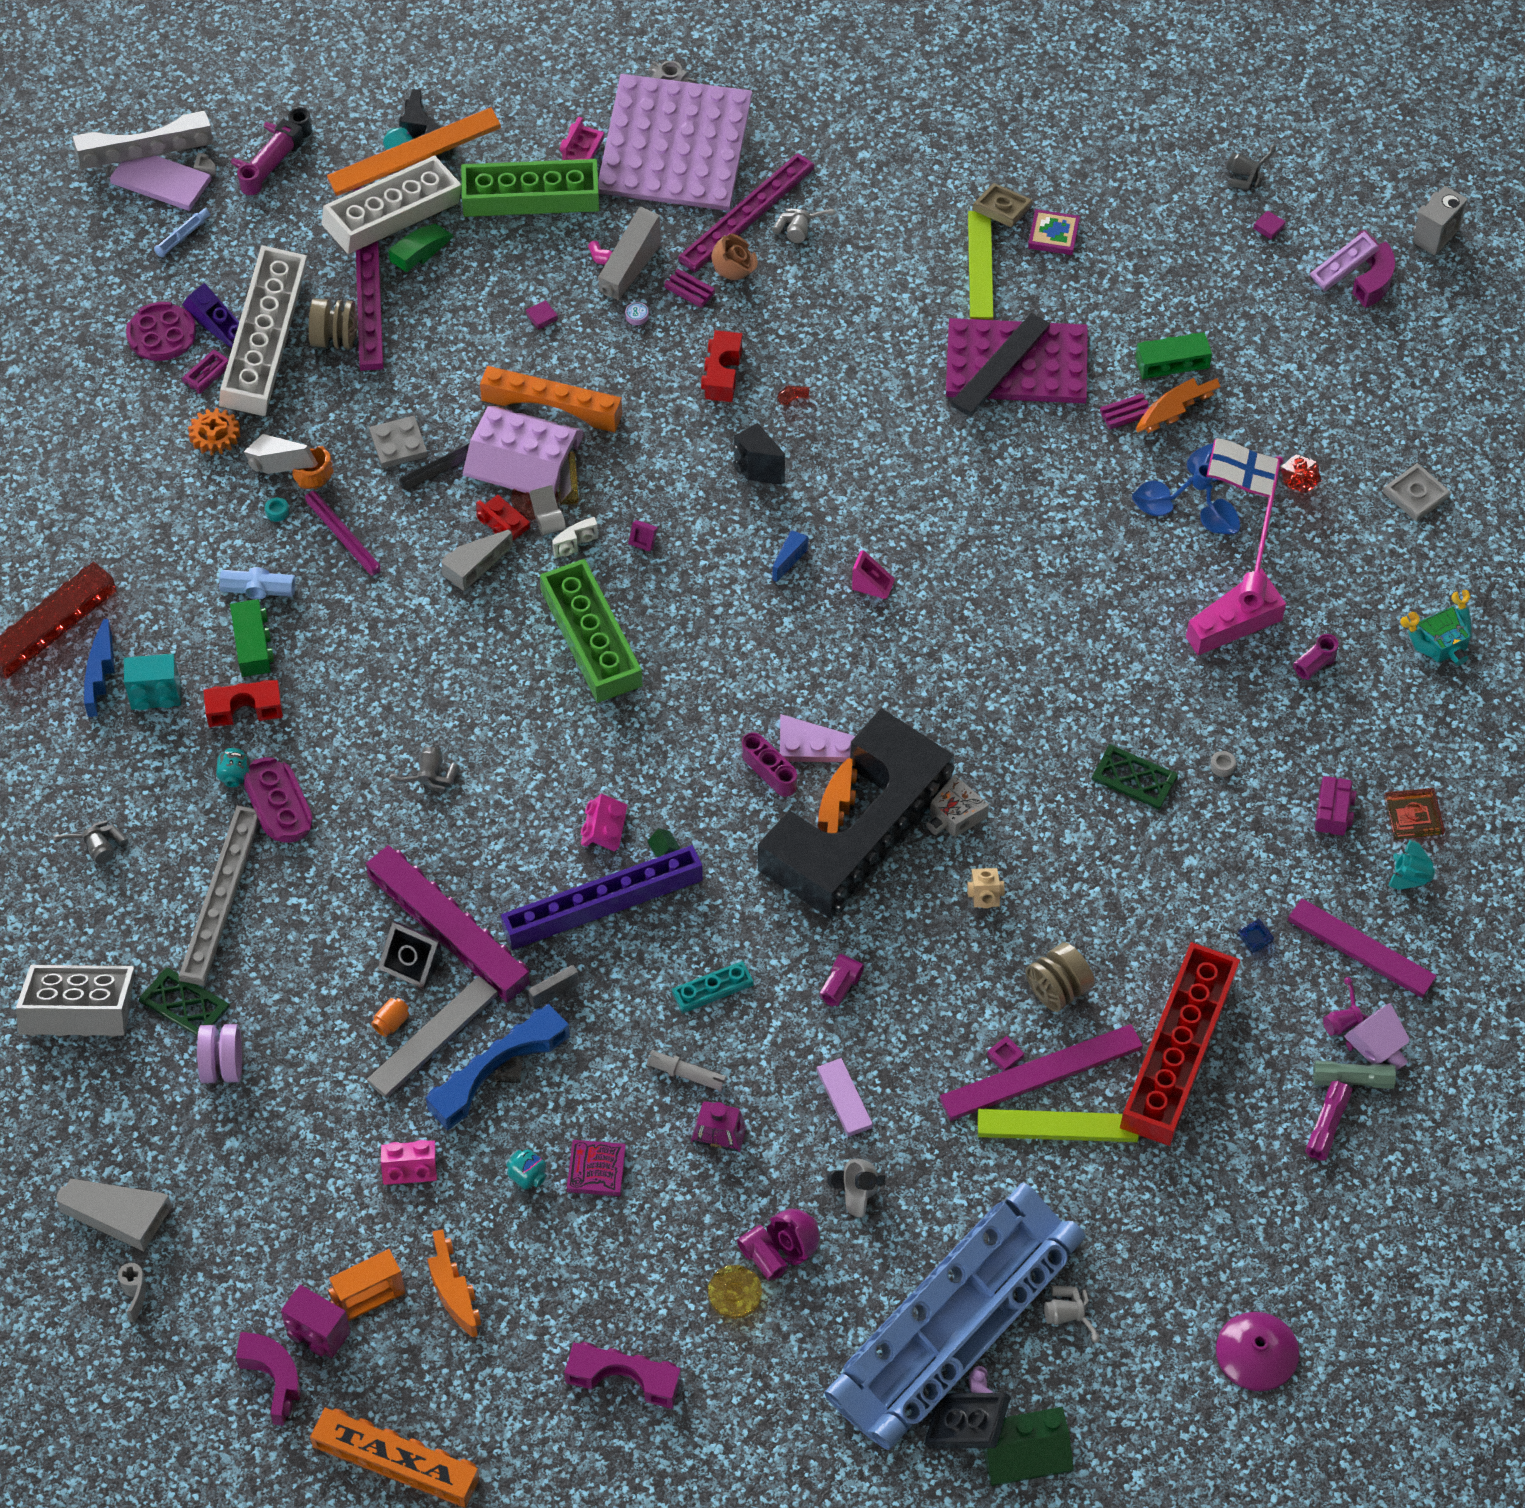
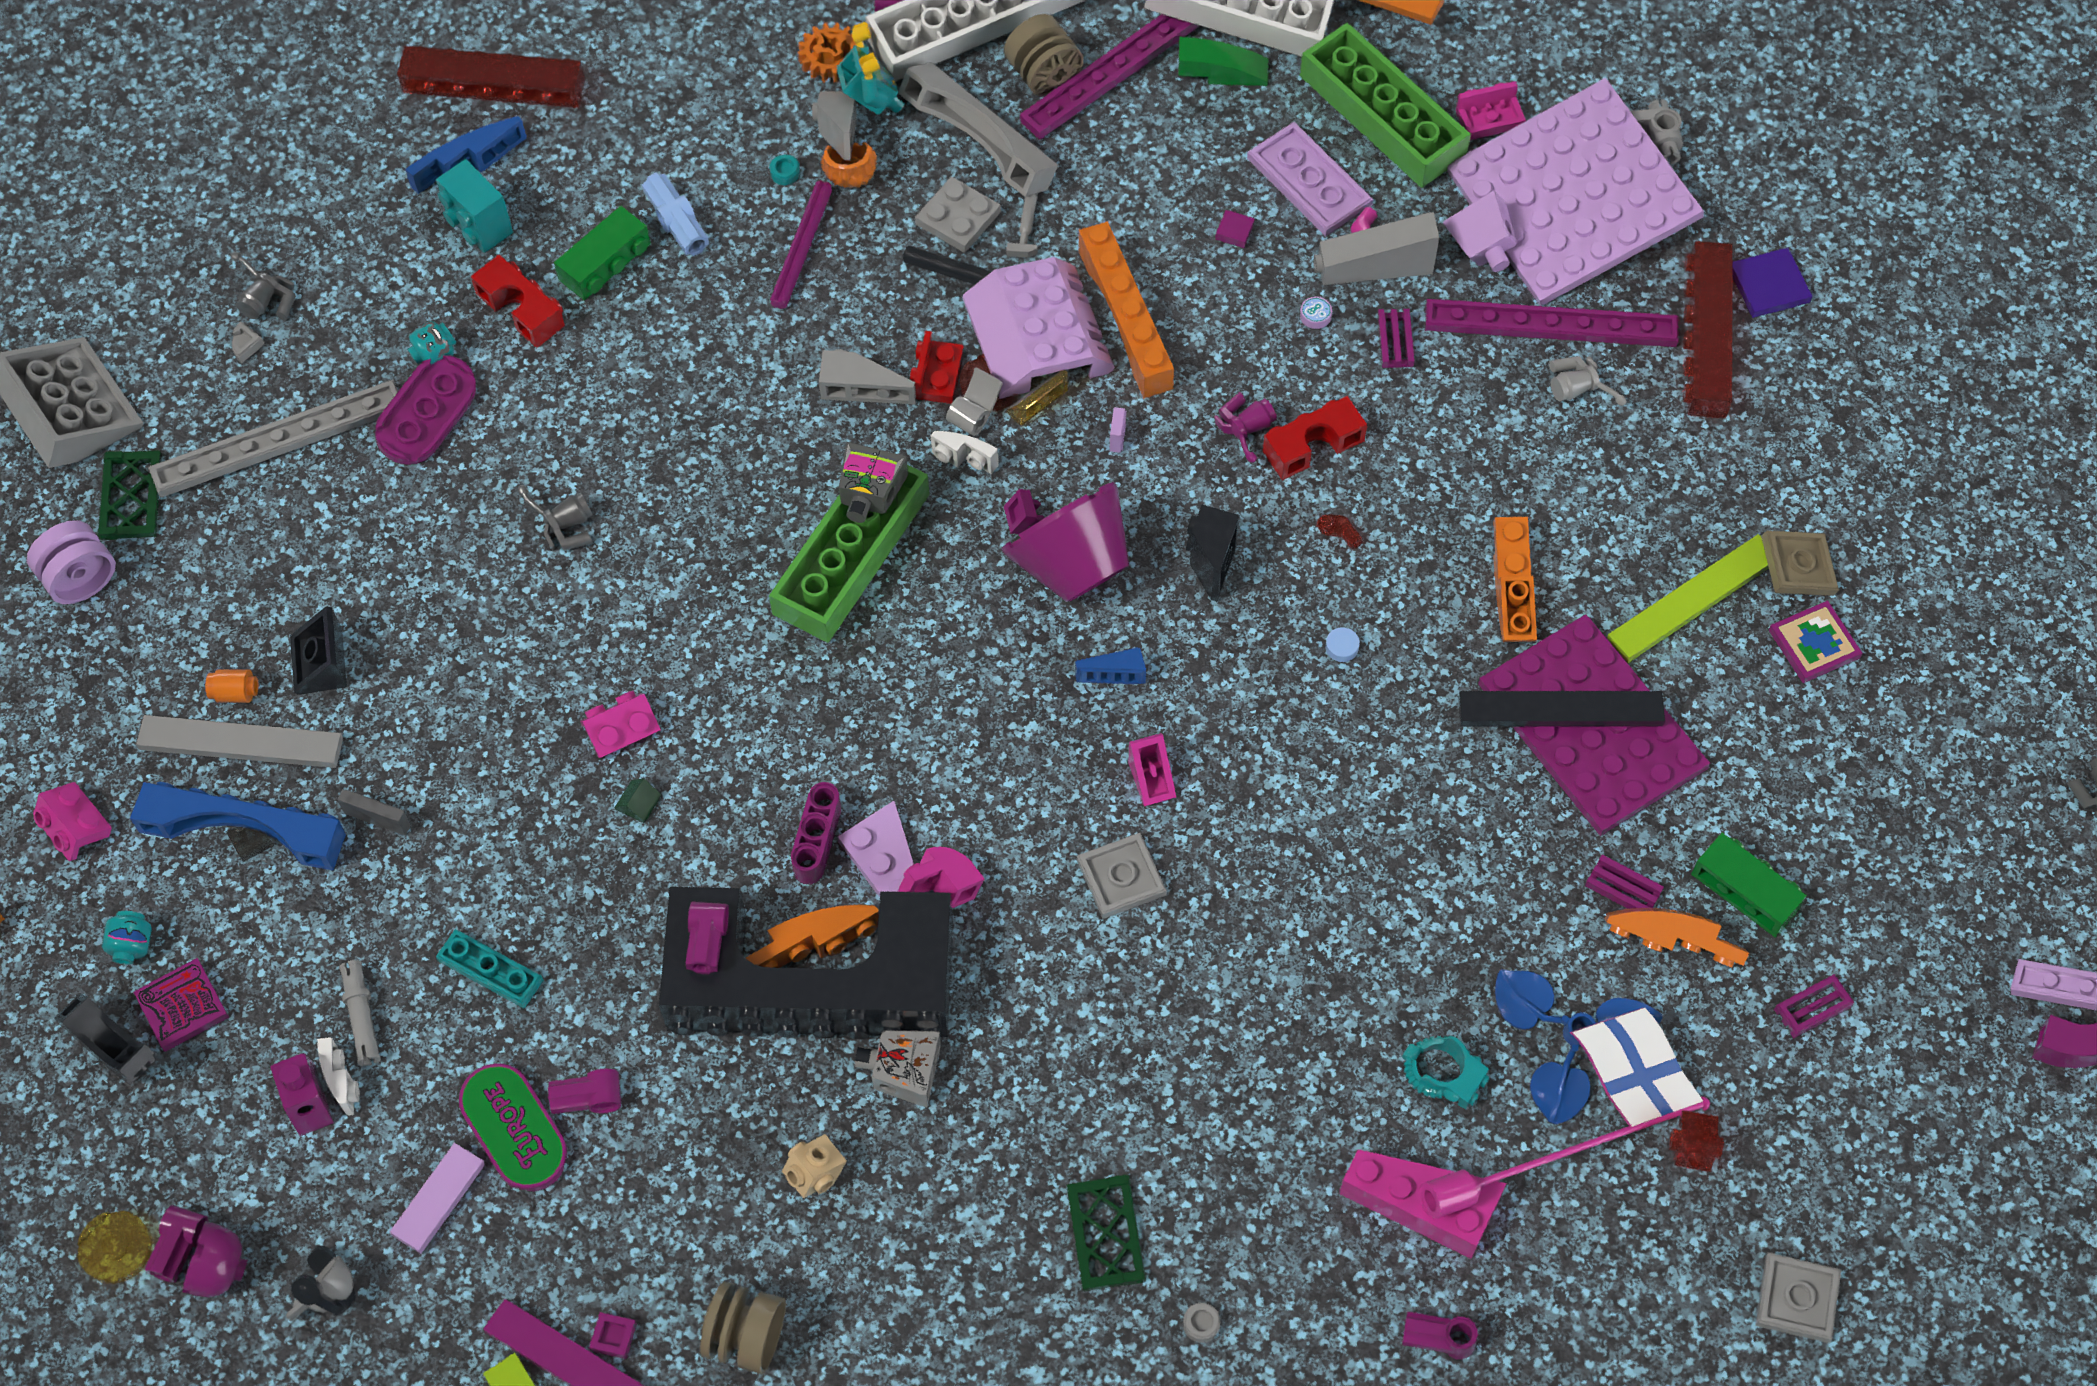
camera: 55 degrees right, 5 degrees up
(124, 874) = (245, 342): none -> light grey tile
(259, 421) = (865, 78): none -> teal torso
(315, 393) = (1018, 159): none -> light grey arch
(448, 923) = (383, 663): magenta brick -> none
(453, 427) = (1023, 249): none -> light grey piece
(540, 258) = (1309, 179): none -> lavender tile
(566, 585) = (870, 480): none -> torso
(595, 1219) = (105, 1039): none -> black arch
(601, 897) = (515, 783): dark purple brick -> none
(630, 454) = (1117, 430): none -> lavender tile
(665, 197) = (1484, 231): none -> lavender torso
(683, 387) = (1253, 419): none -> magenta piece
(699, 514) = (1075, 545): none -> magenta cone
(728, 1100) = (336, 1076): none -> white slope
(733, 258) = (1465, 348): nougat cylinder -> none
(805, 835) = (706, 927): none -> magenta piece
(814, 99) = (1770, 282): none -> dark purple tile
(821, 144) = (1709, 329): none -> clear red brick
(830, 1032) = (513, 1127): none -> green tile
(854, 714) = (944, 872): none -> dark pink brick
(867, 440) = (1342, 644): none -> light blue tile
(901, 338) = (1514, 580): none -> orange slope
(922, 635) = (1121, 875): none -> light grey tile
(1179, 547) = (1462, 1089): none -> teal piece
(1262, 391) = (1790, 1019): none -> magenta tile
(1269, 225) = (2051, 866): magenta tile -> none

